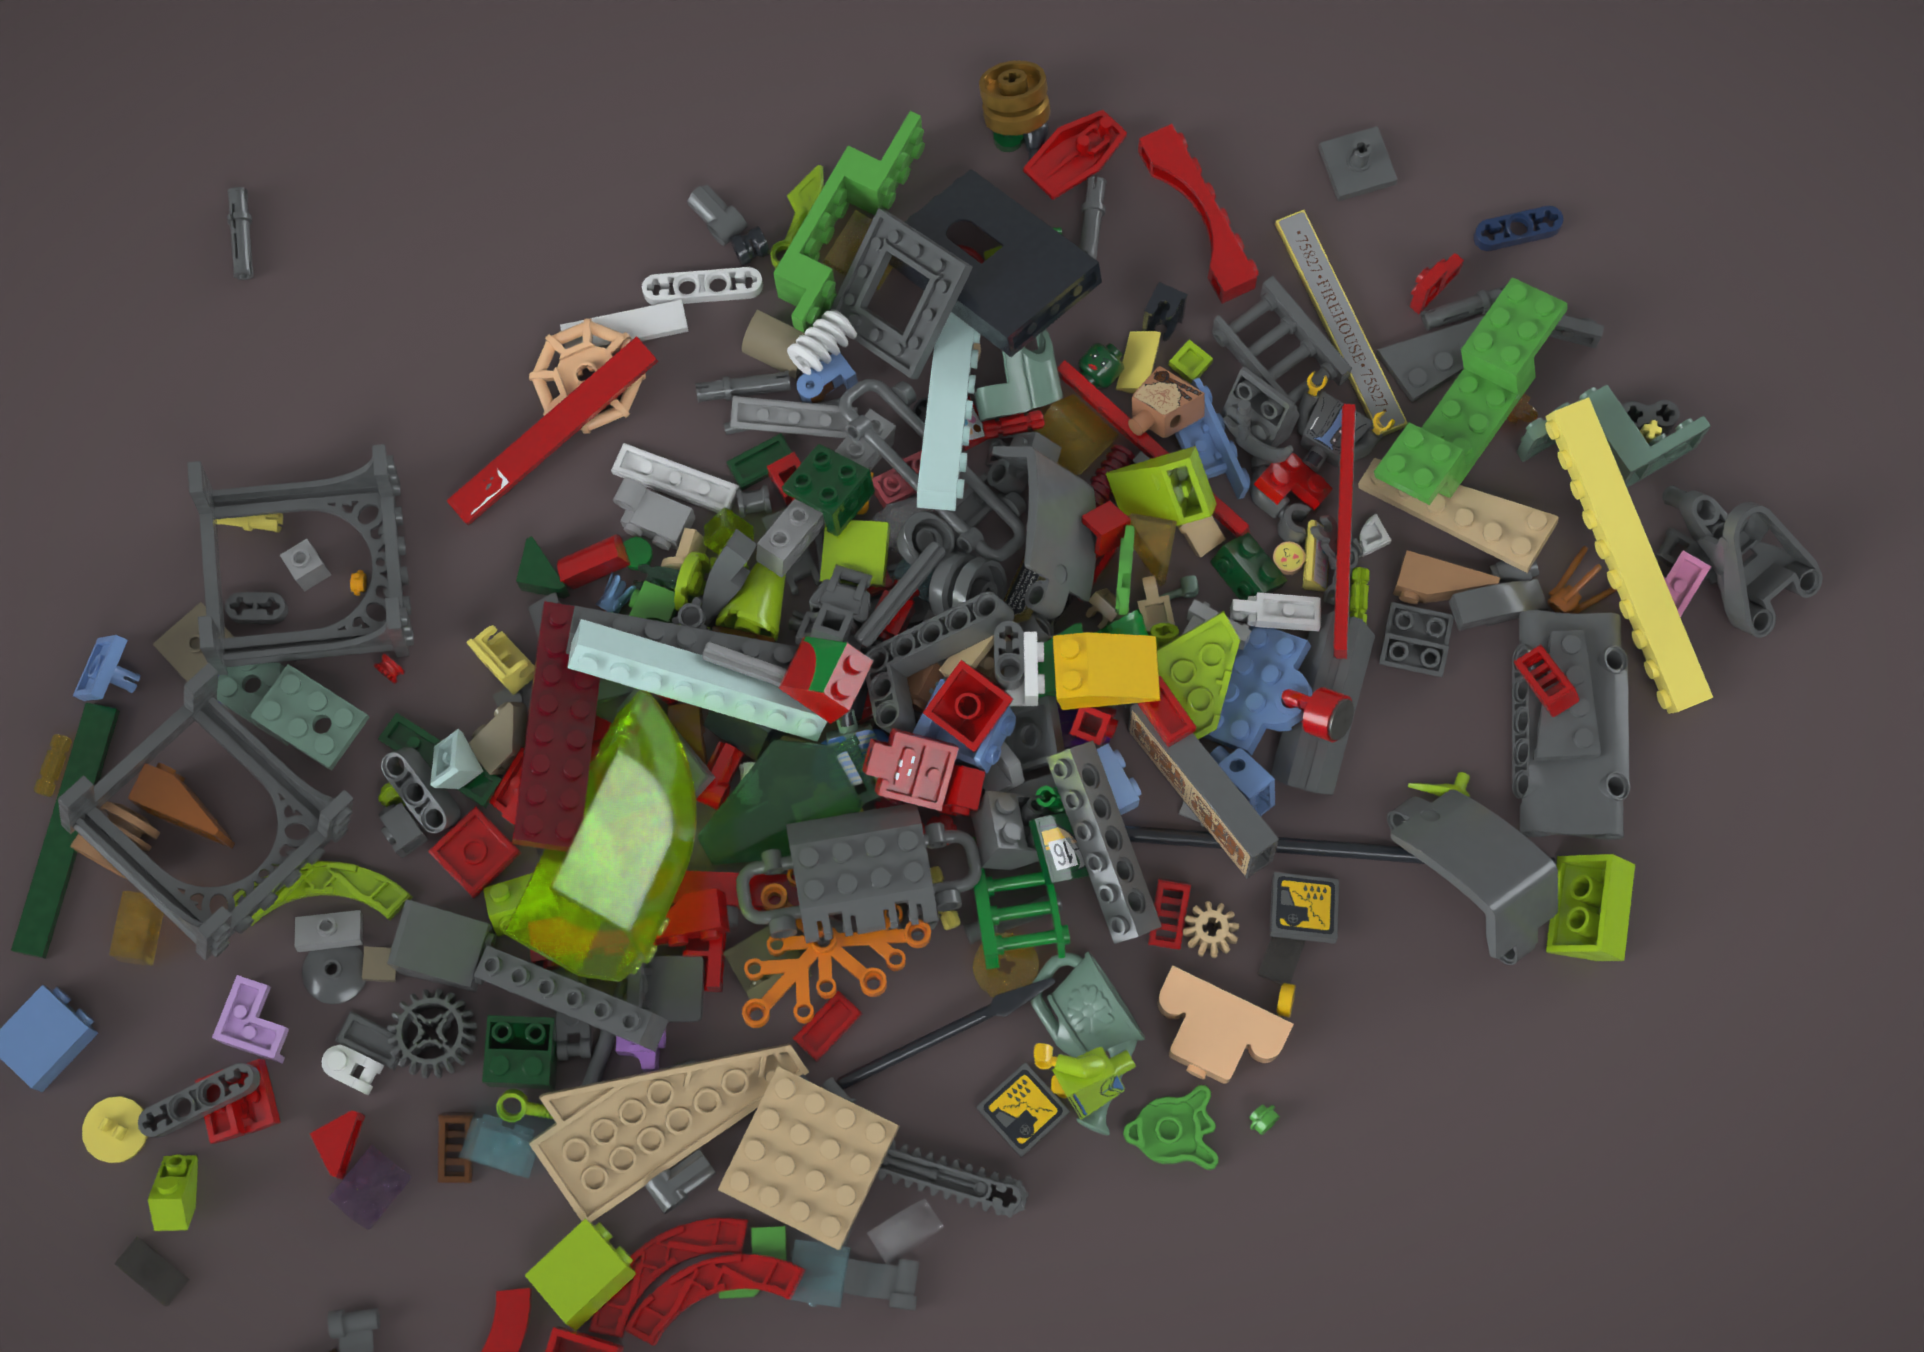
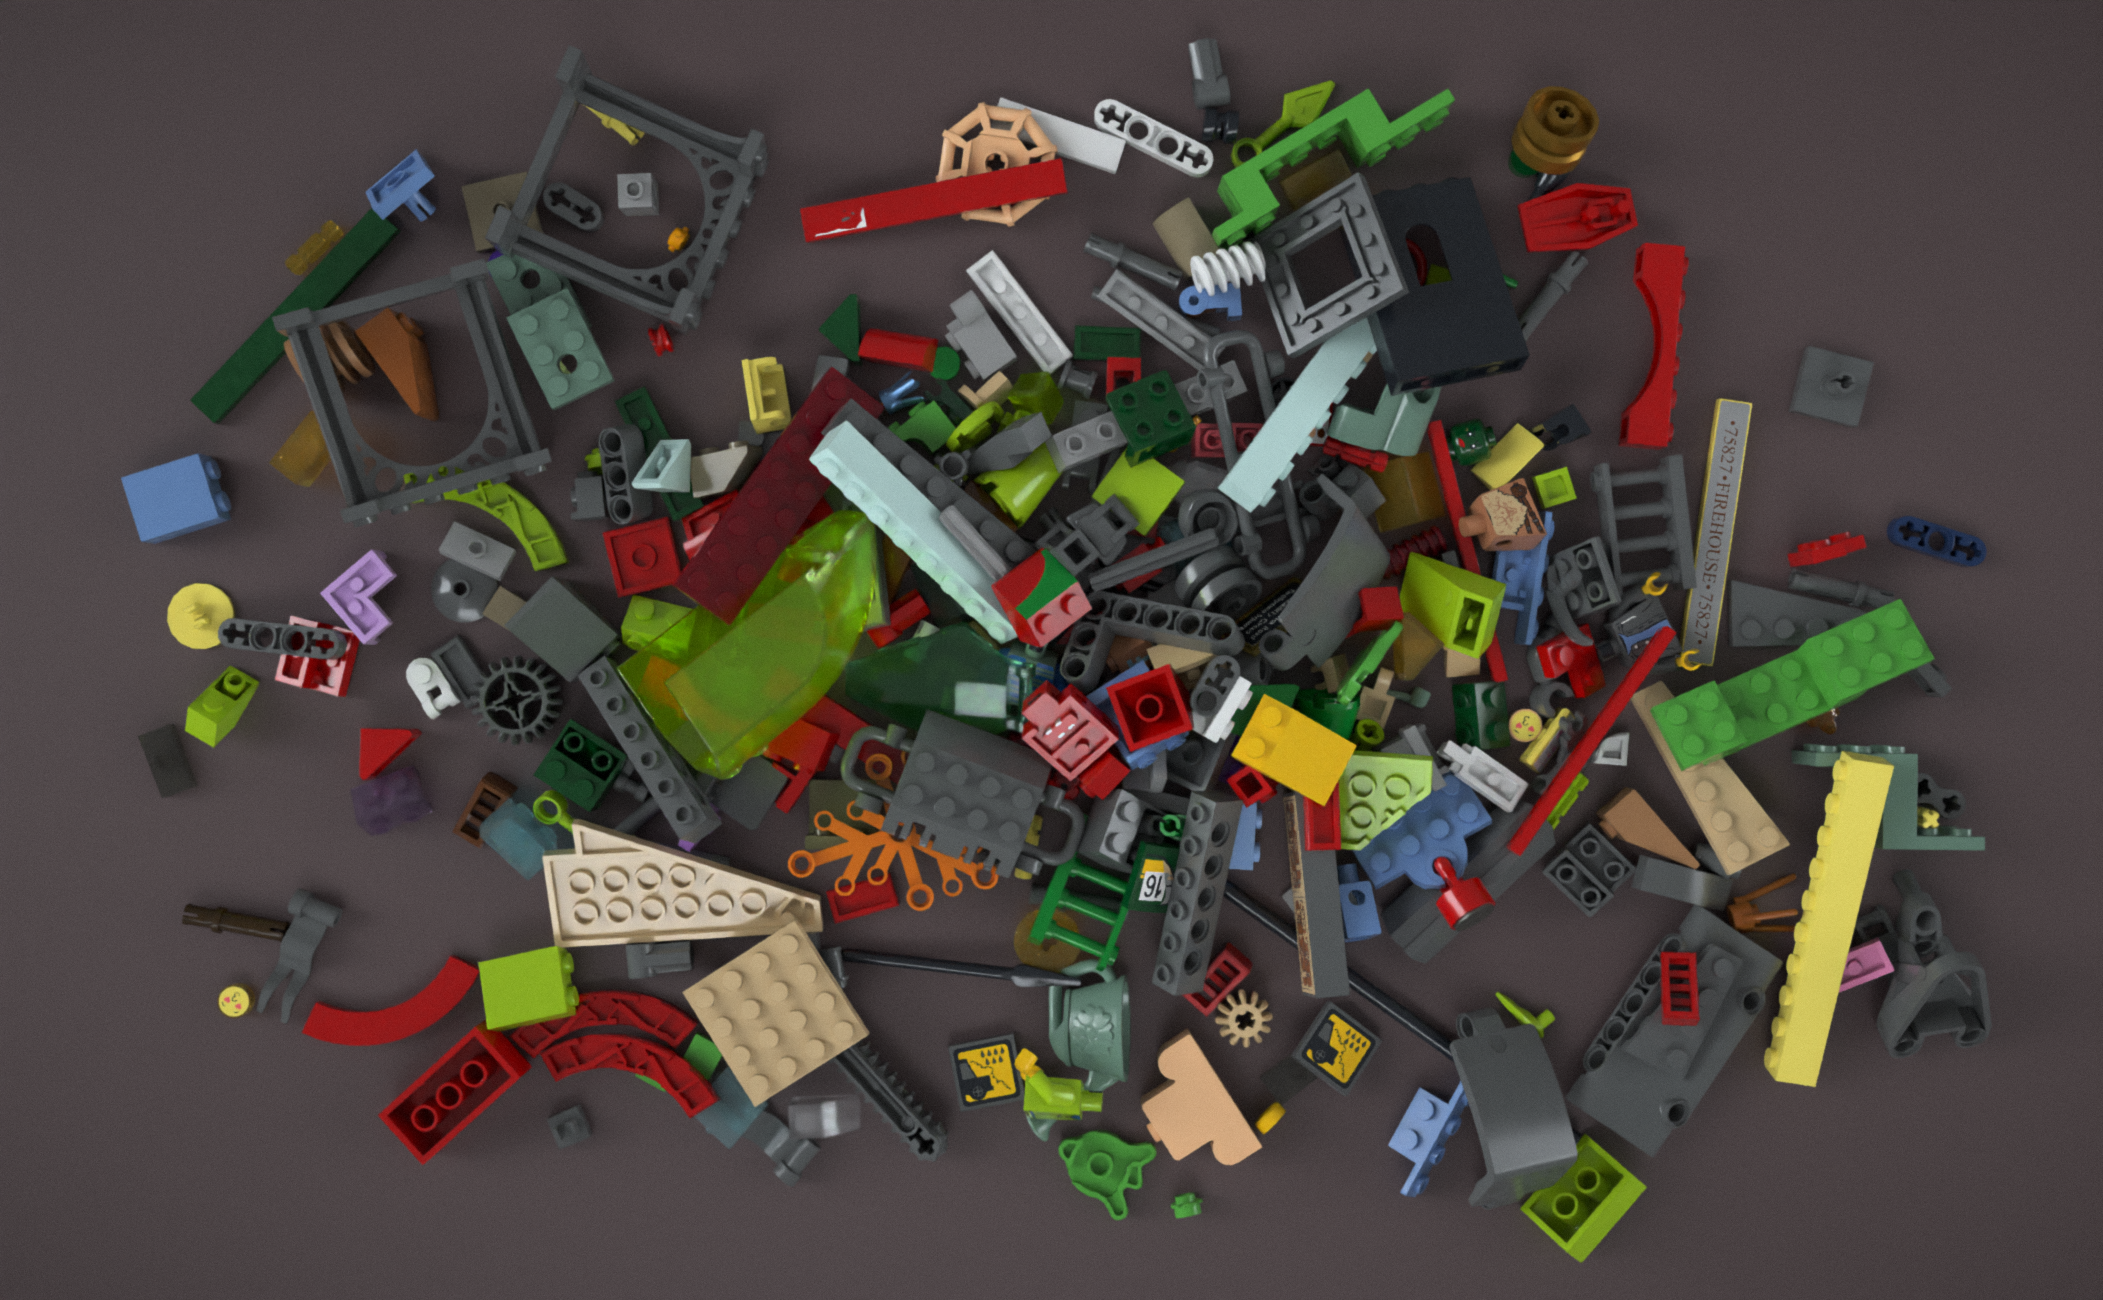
camera: 25 degrees right, 15 degrees up
(1424, 931) = (1424, 1133): none -> medium blue bracket

